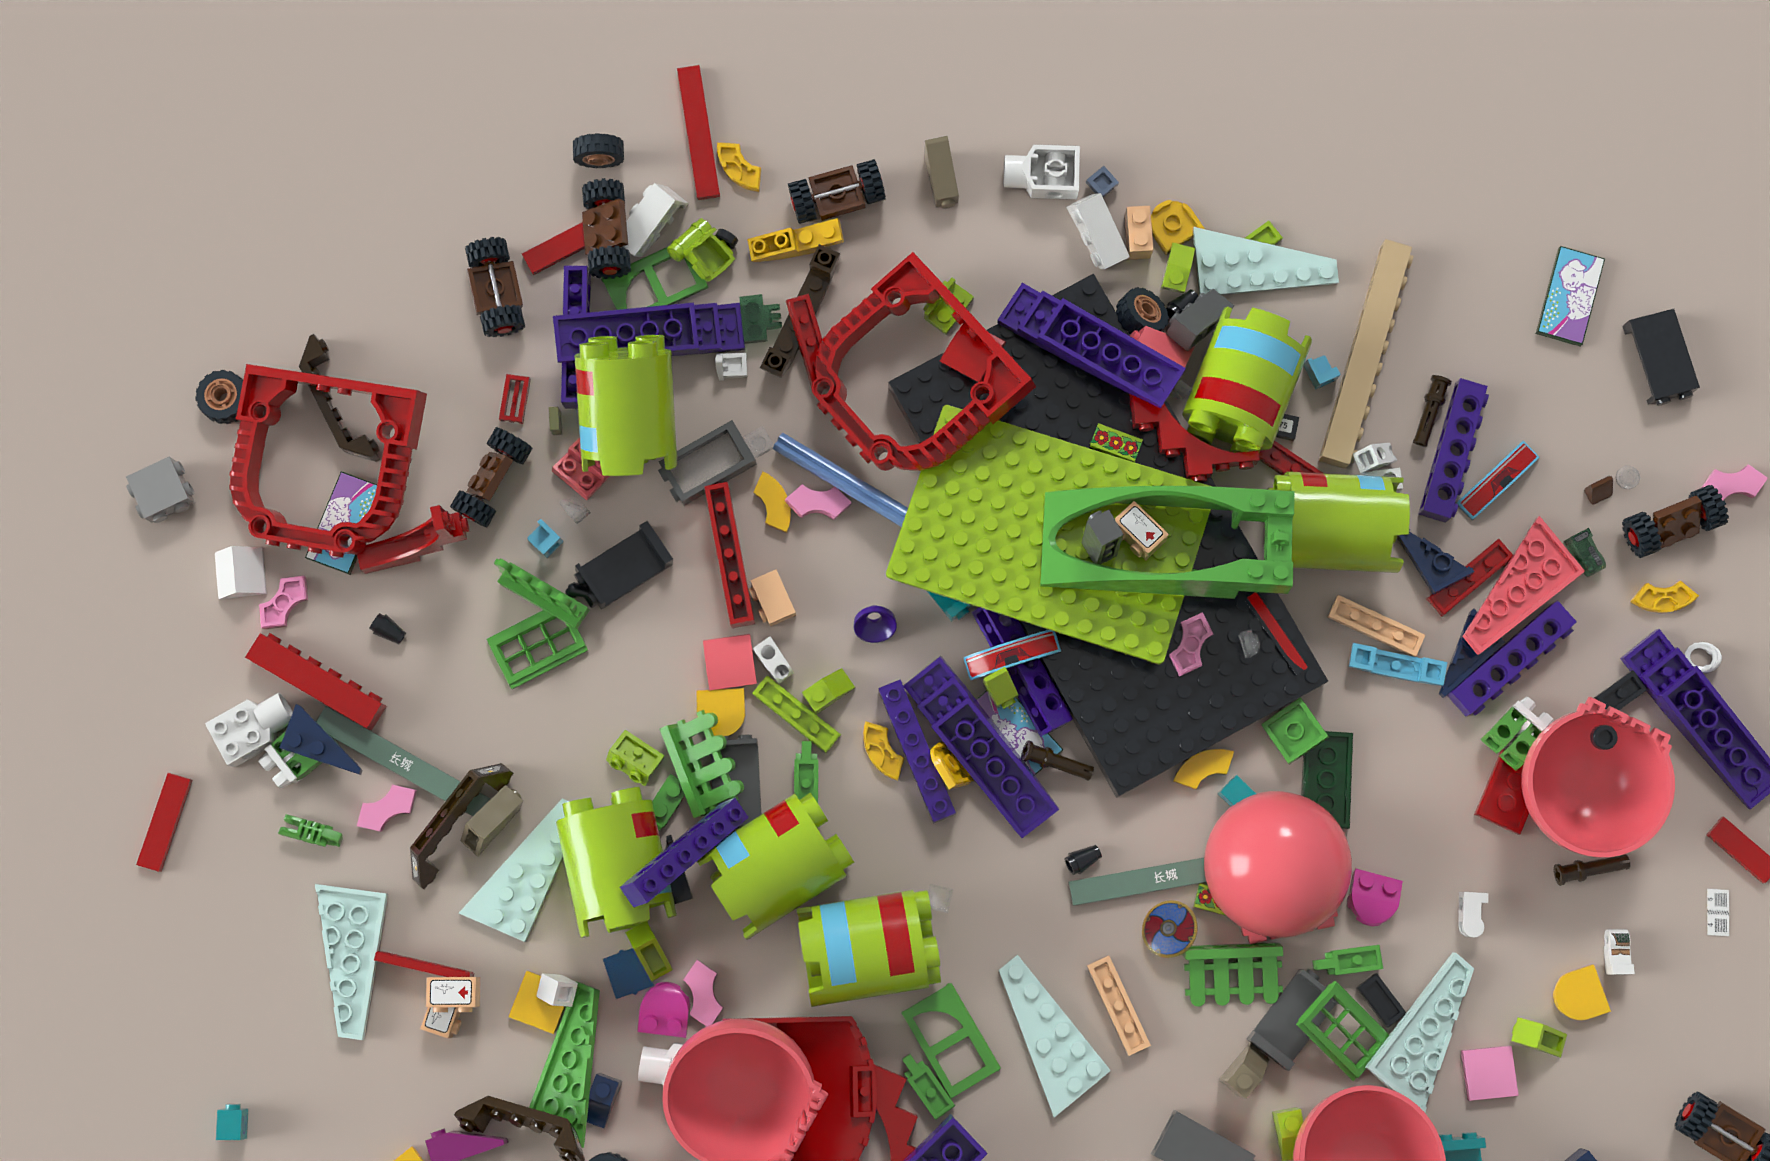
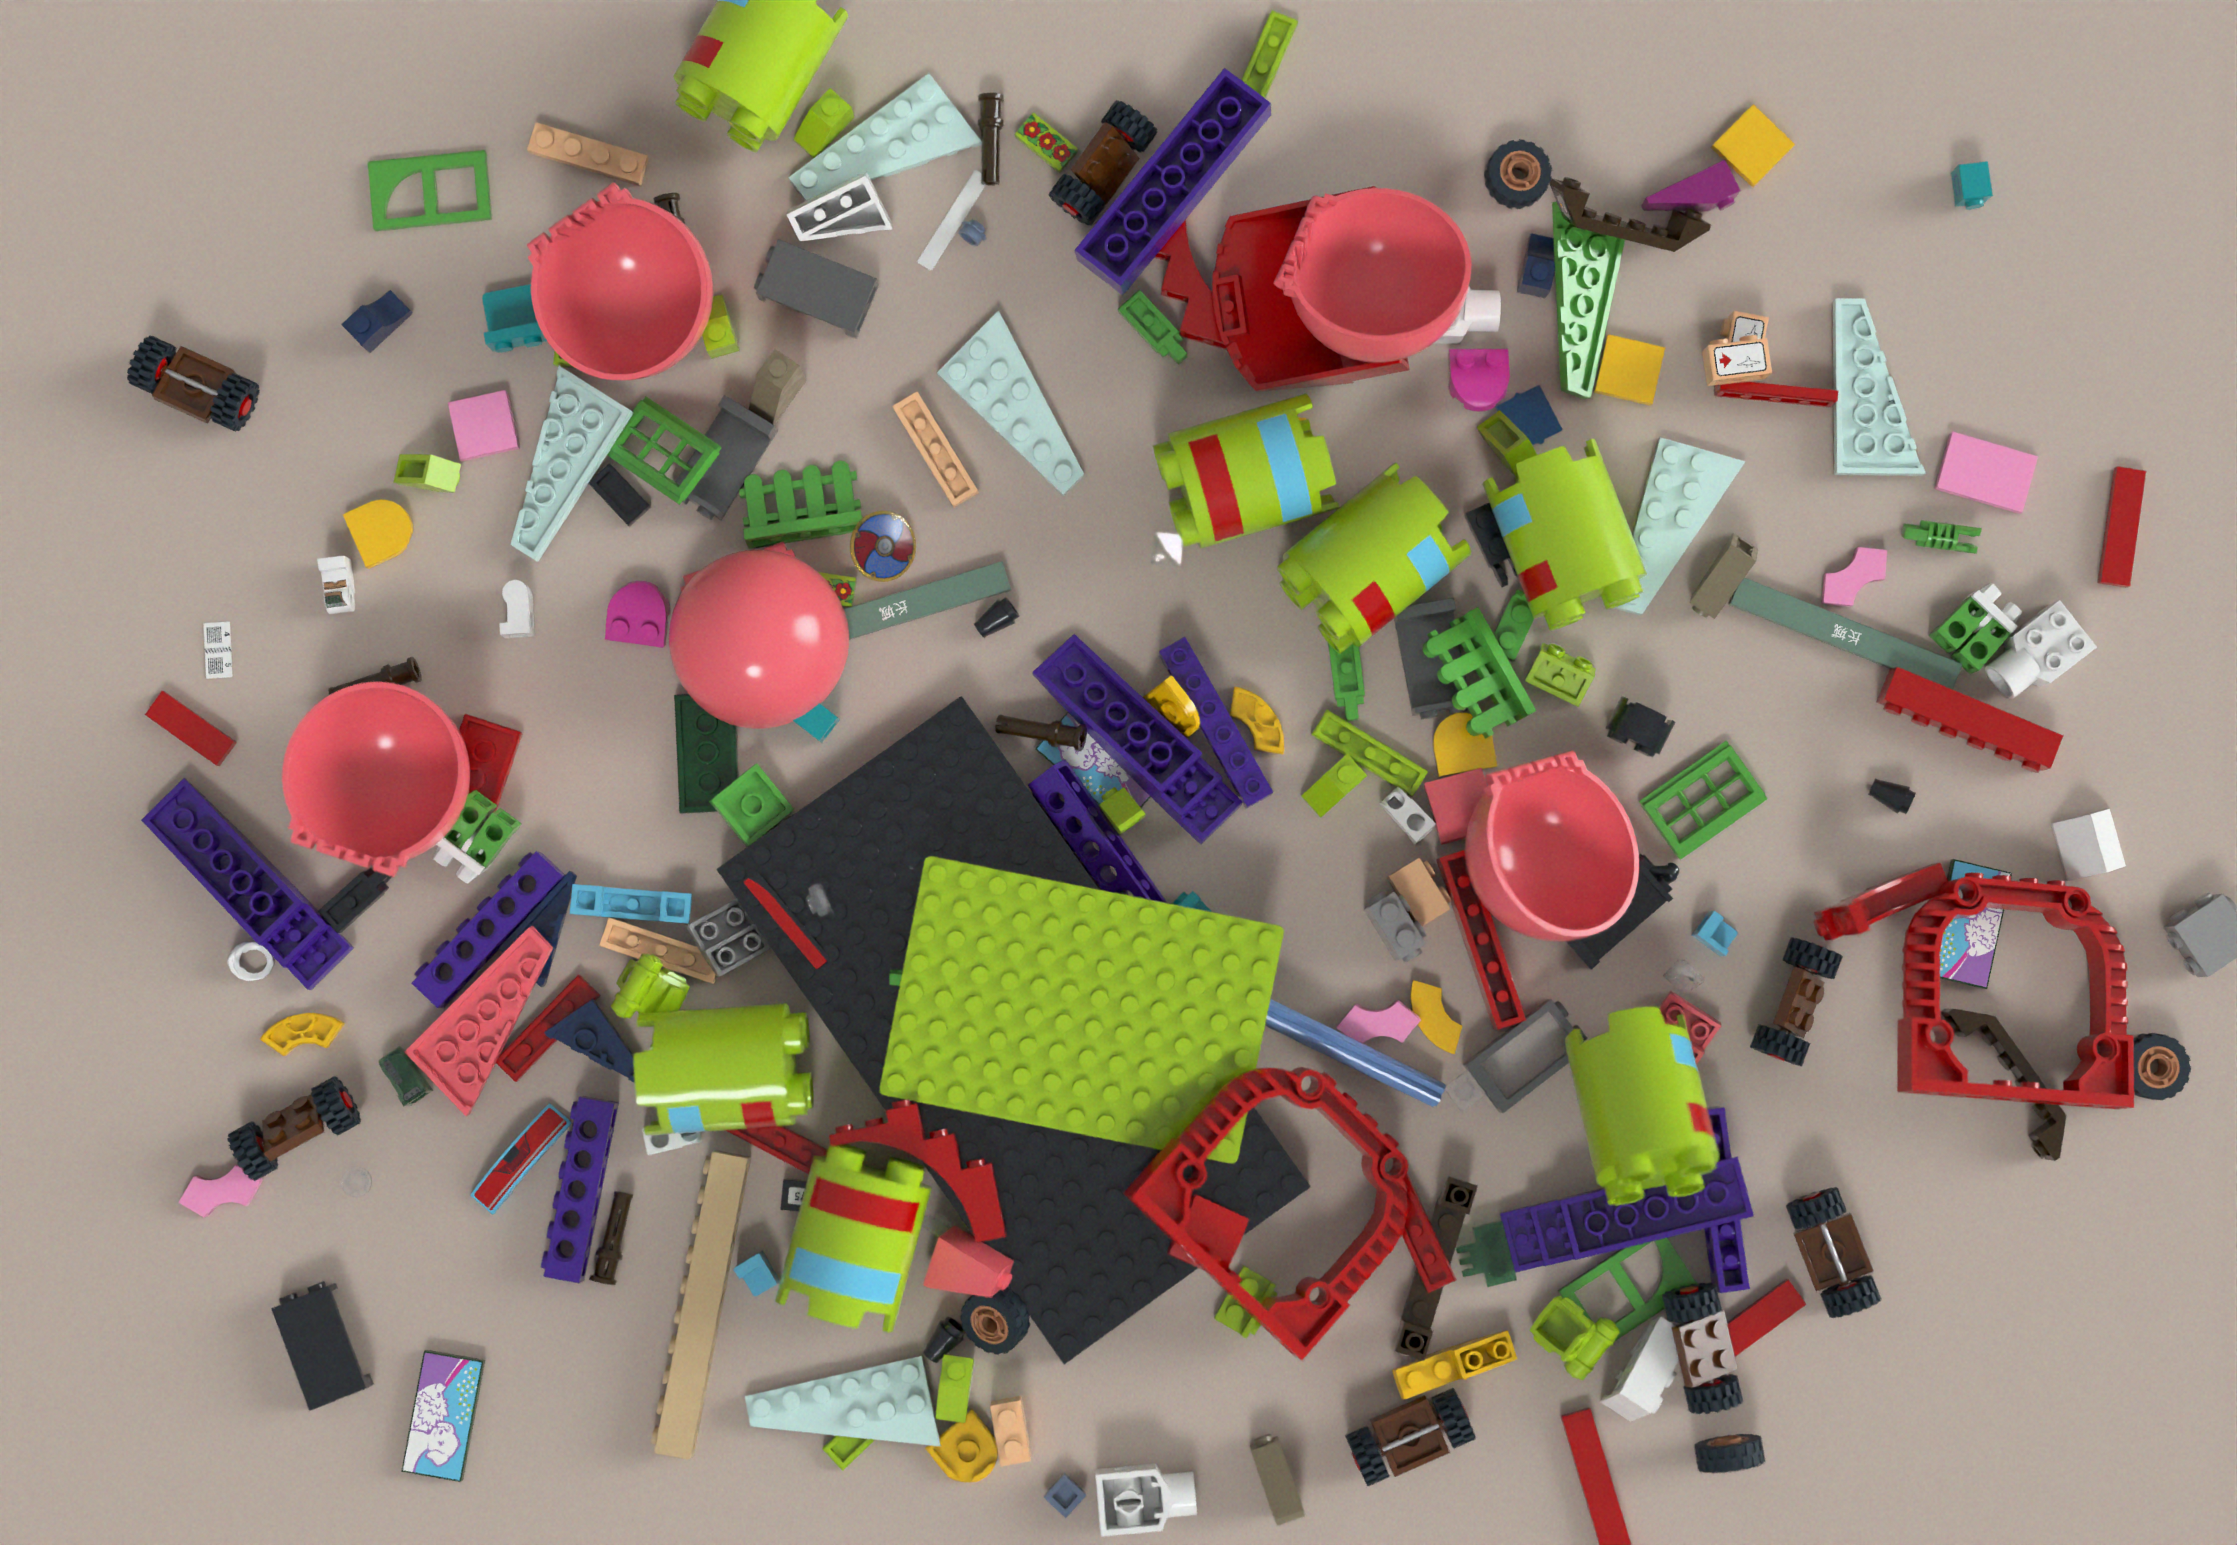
camera: 170 degrees right, 5 degrees up
(265, 880) = (1986, 472): none -> bright pink tile
(290, 593) = (2022, 825): bright pink tile -> none
(308, 739) = (1965, 642): dark blue wing -> none
(423, 870) = (1732, 629): dark brown slope -> none
(518, 379) = (1771, 1111): red tile -> none
(541, 594) = (1708, 861): bright green fence -> none
(555, 420) = (1726, 1086): olive tile -> none
(557, 990) = (1612, 384): white panel -> none
(579, 705) = (1640, 726): none -> black brick
(665, 609) = (1552, 850): none -> coral windscreen
(683, 852) = (1485, 552): dark purple brick -> none
(701, 983) = (1431, 392): bright pink tile -> none
(730, 239) = (1542, 1356): black tile -> none
(731, 365) = (1514, 1188): white tile -> none
(737, 167) = (1544, 1458): yellow tile -> none
(798, 578) = (1395, 926): none -> light grey brick
(875, 629) = (1286, 870): dark purple piece -> none
(949, 1002) = (1139, 430): bright green window -> none
(1012, 653) = (1113, 853): slope -> none
(1091, 344) = (1058, 1261): dark purple slope -> none
(1098, 231) = (1064, 1426): white wedge -> none
(1102, 537) = (1019, 1000): dark grey brick -> none
(1116, 443) = (1011, 1139): tile -> none
(1141, 531) = (972, 1020): brick -> none
(1194, 633) = (888, 906): bright pink tile -> none
(1197, 319) = (922, 1319): dark grey brick -> none
(1202, 765) = (855, 753): yellow tile -> none
(1223, 581) = (801, 975): bright green windscreen -> none
(1324, 628) = (727, 938): none -> light grey slope
(1350, 960) = (660, 536): bright green hinge -> none
(1374, 457) = (680, 1165): white leg -> none
(1389, 593) = (648, 988): none -> lime piece
(1600, 490) = (391, 1160): reddish brown slope -> none
(1603, 737) = (373, 829): black tile -> none

